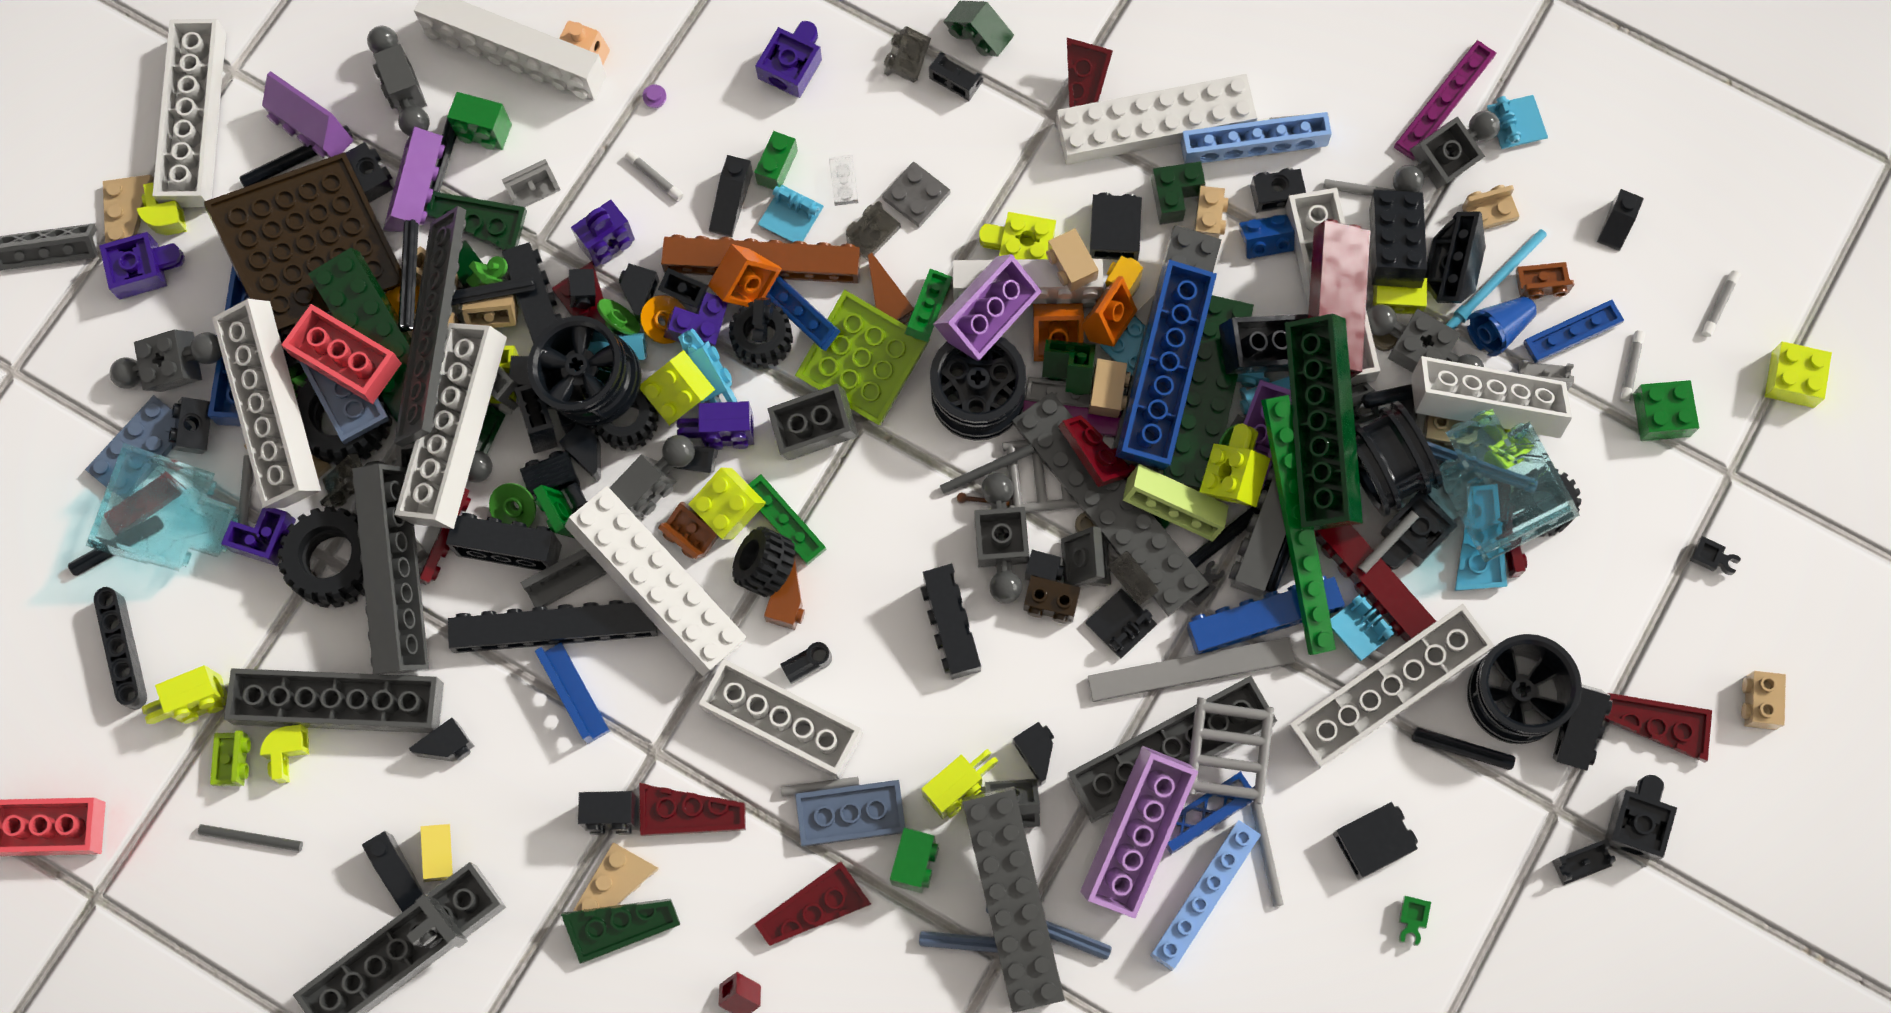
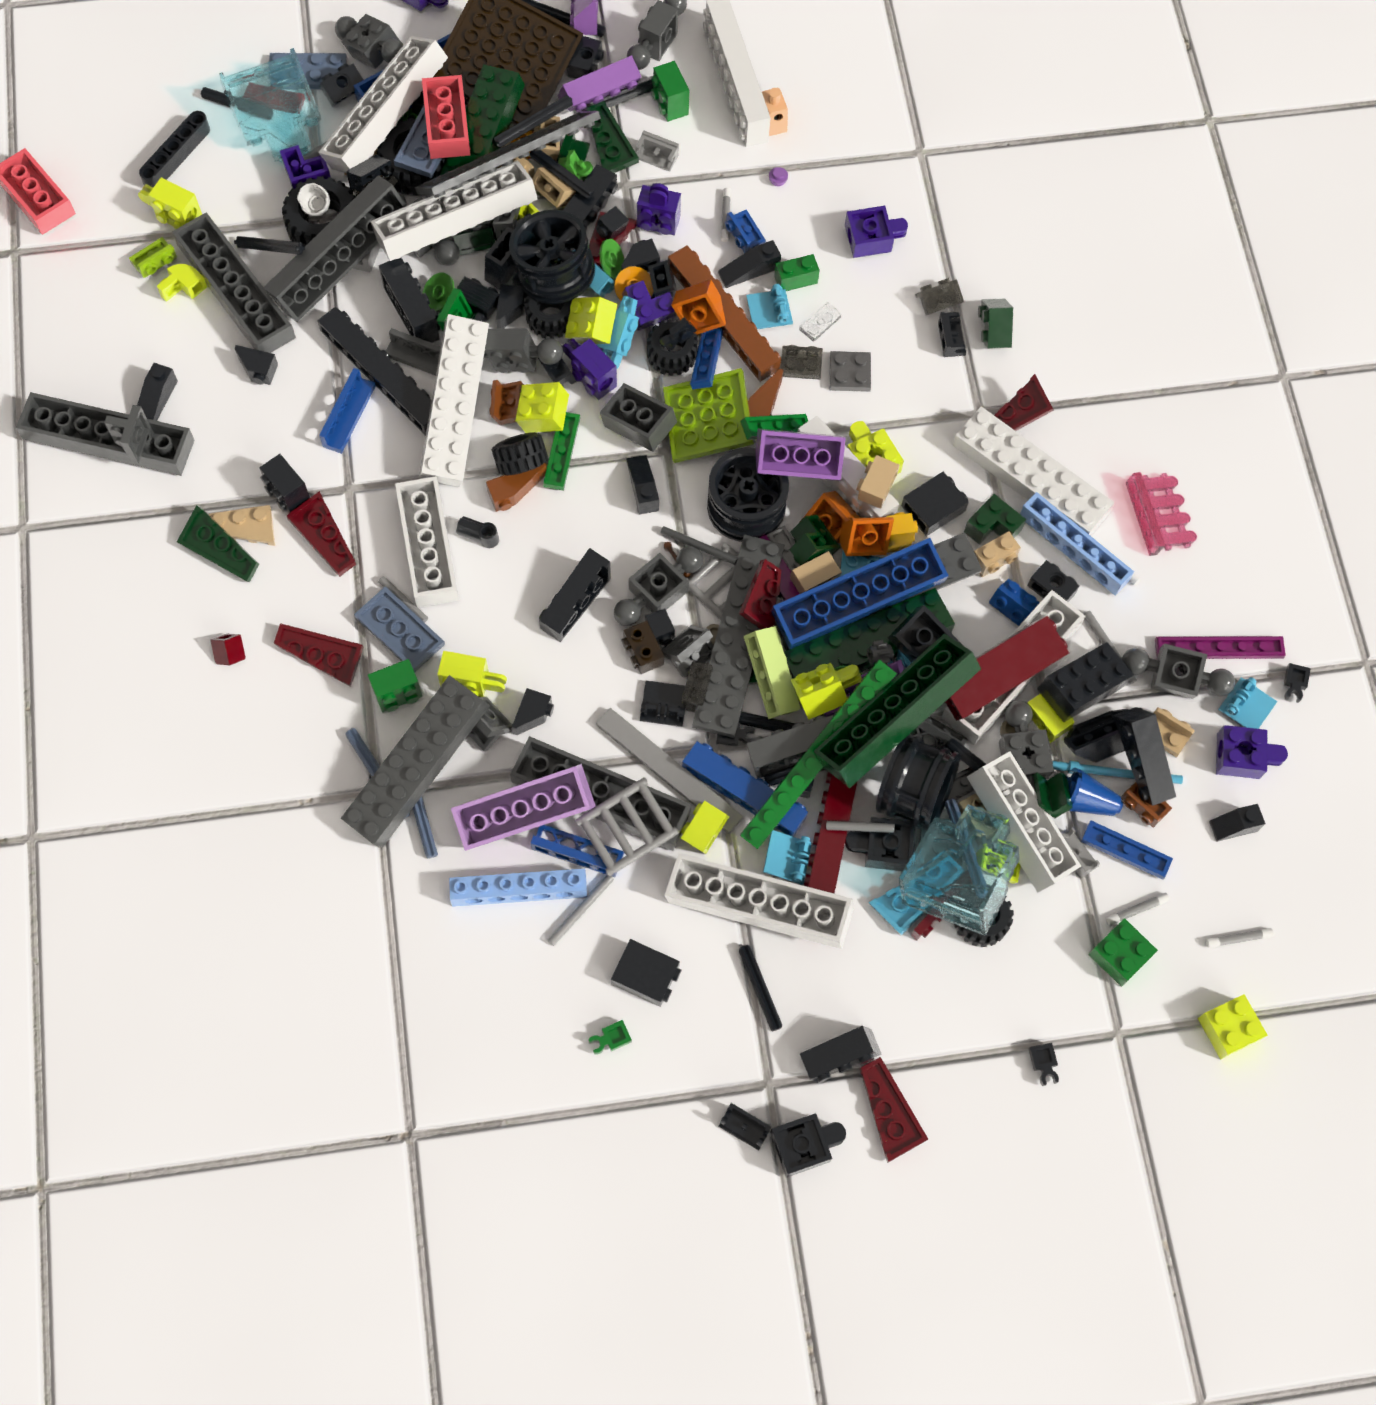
camera: 45 degrees right, 5 degrees down
(249, 837) = (114, 305): dark grey bar -> none
(318, 551) = (313, 199): none -> white hair
(325, 633) = (269, 245): none -> black axle
(327, 475) = (367, 171): none -> black hinge
(436, 852) = (183, 408): light yellow hinge -> none
(440, 548) = (360, 276): dark red plate -> none
(690, 172) = (744, 230): none -> blue bracket
(880, 470) = (643, 484): none -> black slope
(1238, 393) = (880, 651): none -> dark grey gear
(1272, 54) = (1148, 514): none -> clear pink fence
(1276, 679) = (704, 826): none -> neon yellow brick
(1484, 351) = (1053, 794): none -> dark green panel
(1510, 243) = (1145, 754): none -> black wedge
(1525, 61) = (1297, 679): none -> black plate
(1552, 663) = (847, 962): black wheel -> none
(1562, 159) = (1250, 758): none -> dark purple brick
(1764, 700) = (967, 1172): tan brick -> none

